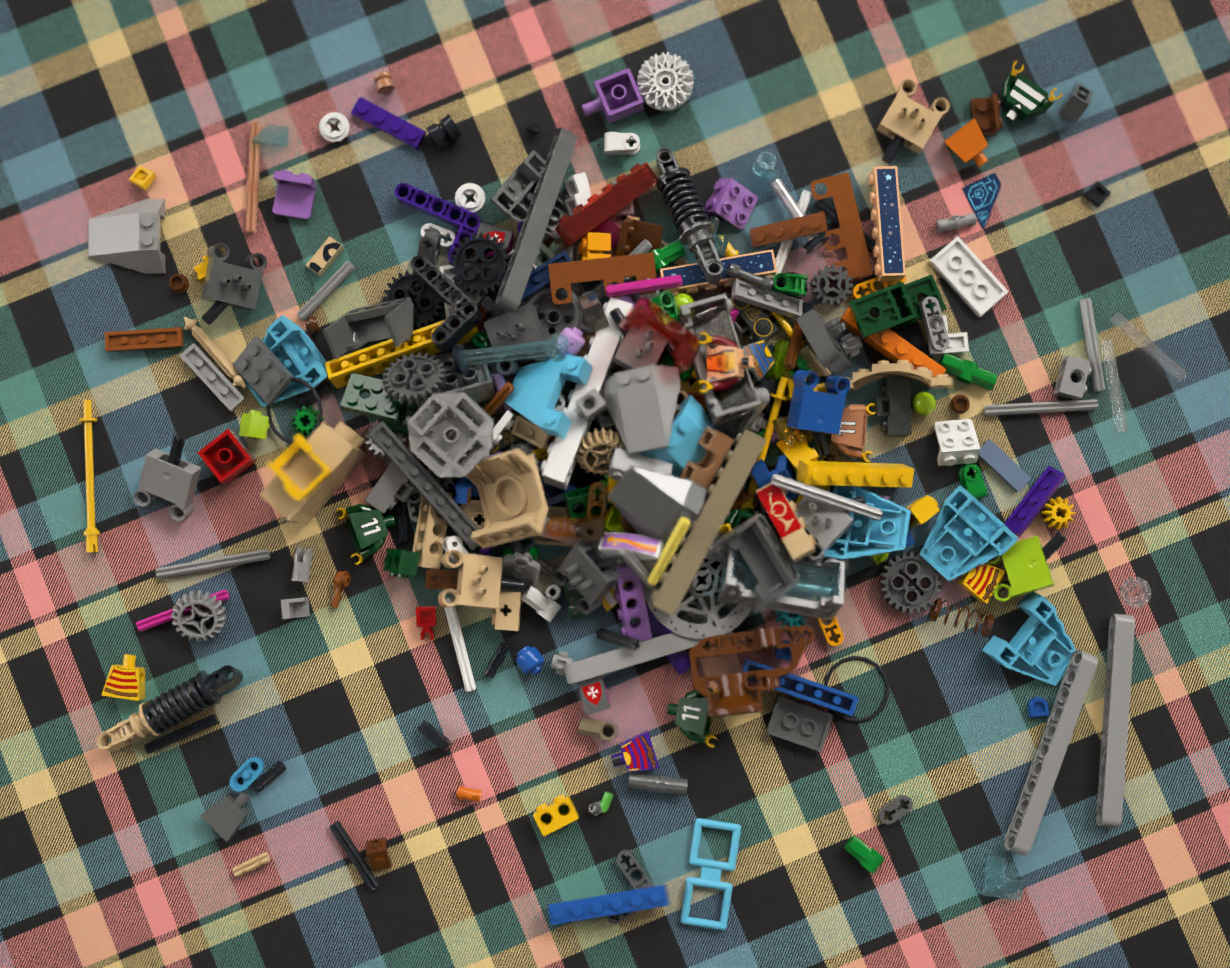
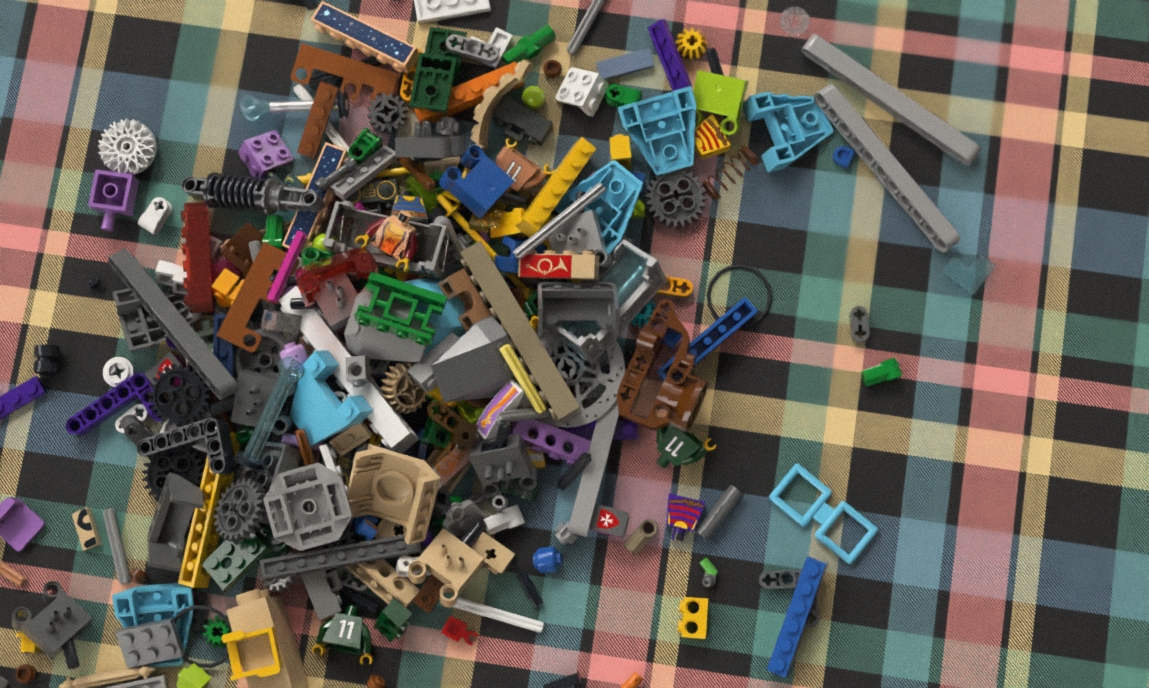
camera: 50 degrees left, 5 degrees down
(679, 406) = (405, 294): none -> green fence
(799, 723) = (739, 361): dark grey plate -> none

